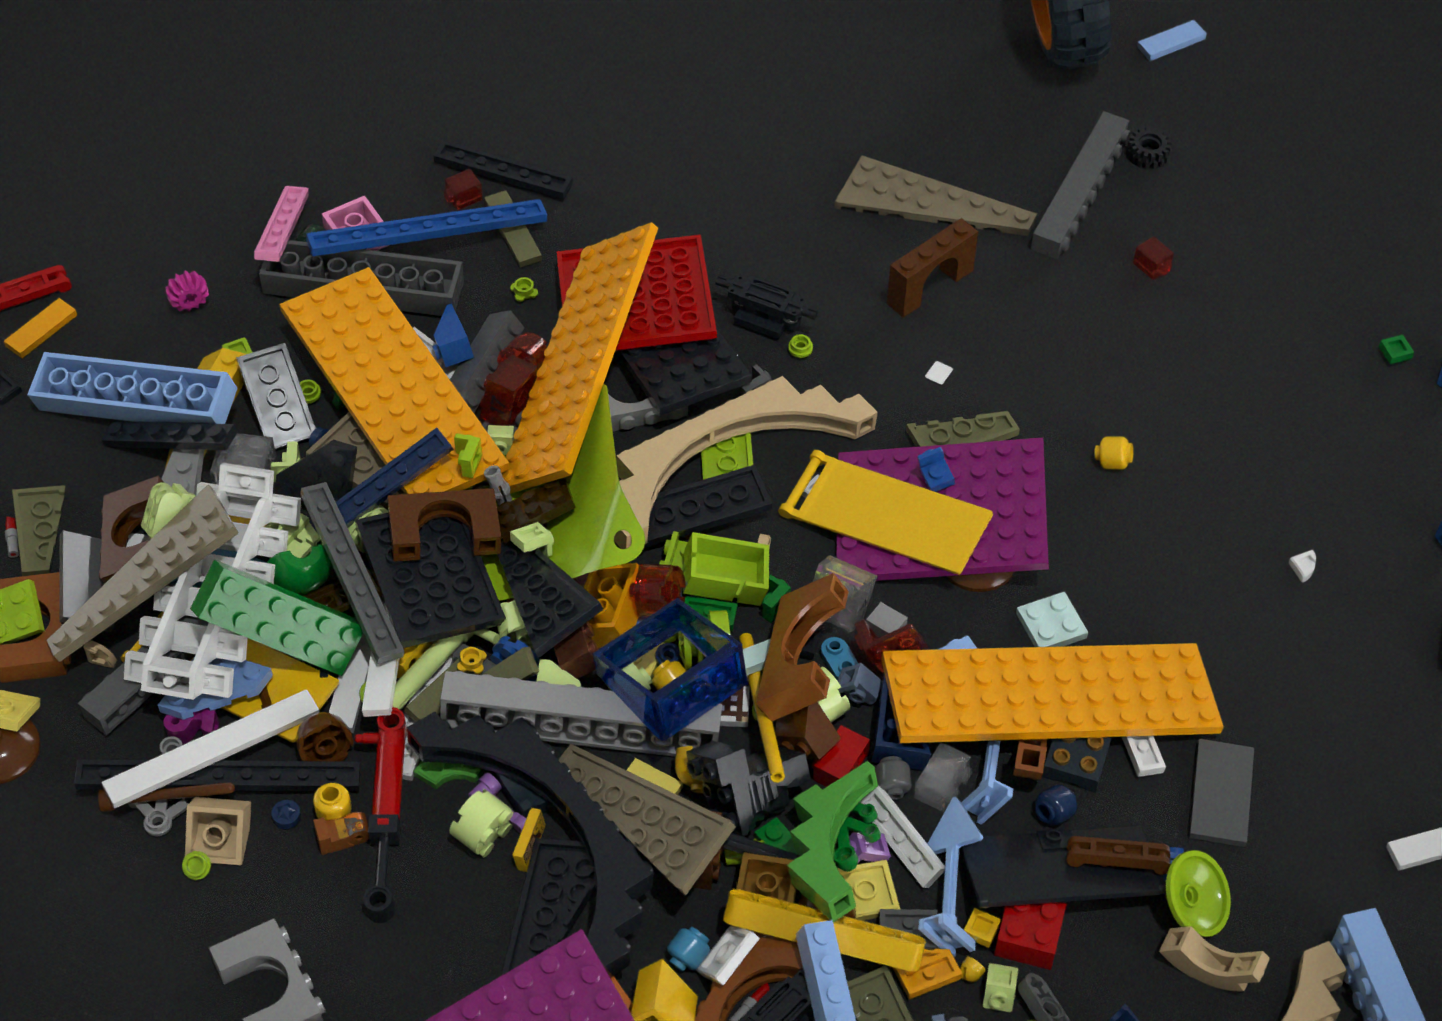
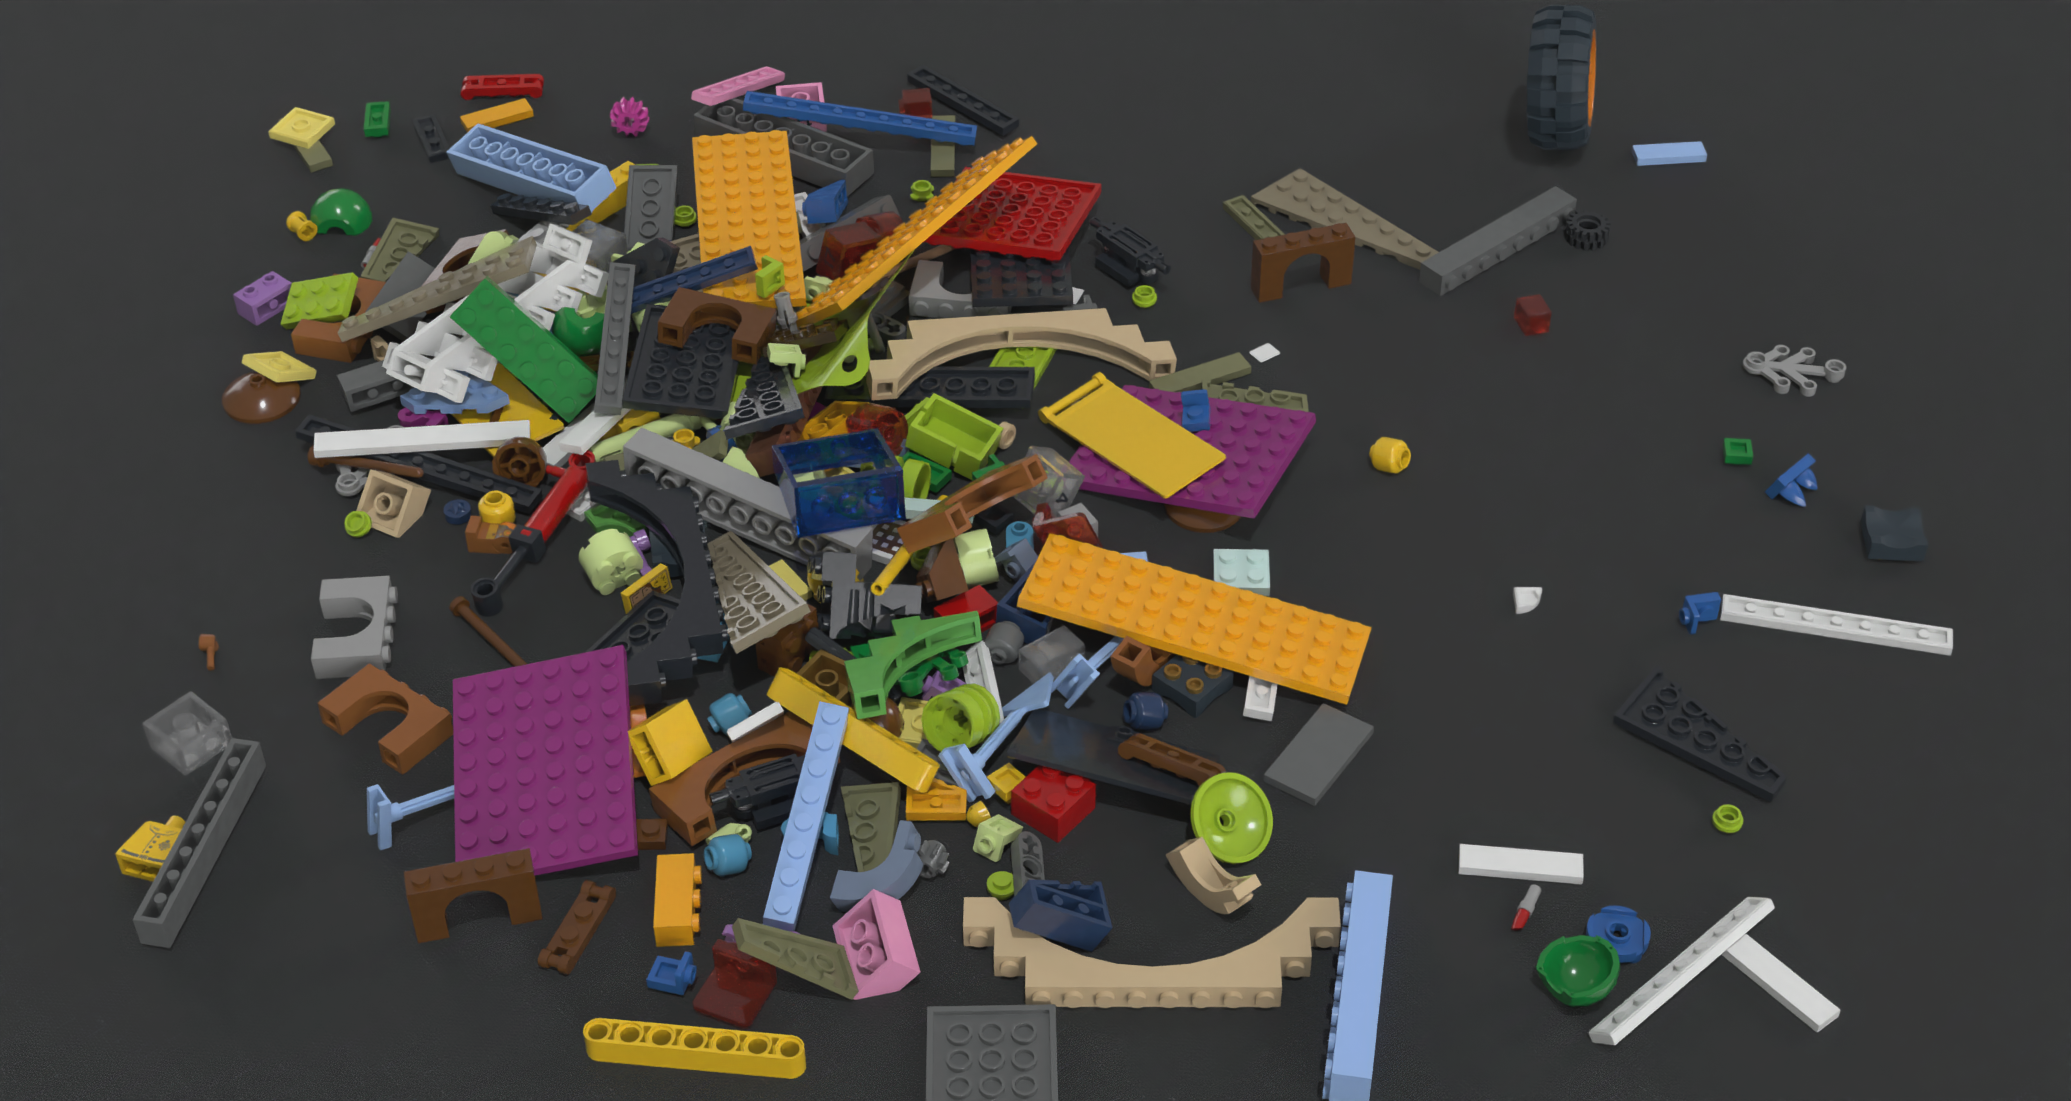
camera: 25 degrees right, 10 degrees down
(358, 923) = (460, 607): none -> reddish brown bar
(858, 232) = (1251, 218): none -> olive tile
(894, 423) = (1217, 371): none -> olive tile
(913, 881) = (960, 717): none -> lime wheel
(1365, 249) = (1763, 364): none -> light grey plant

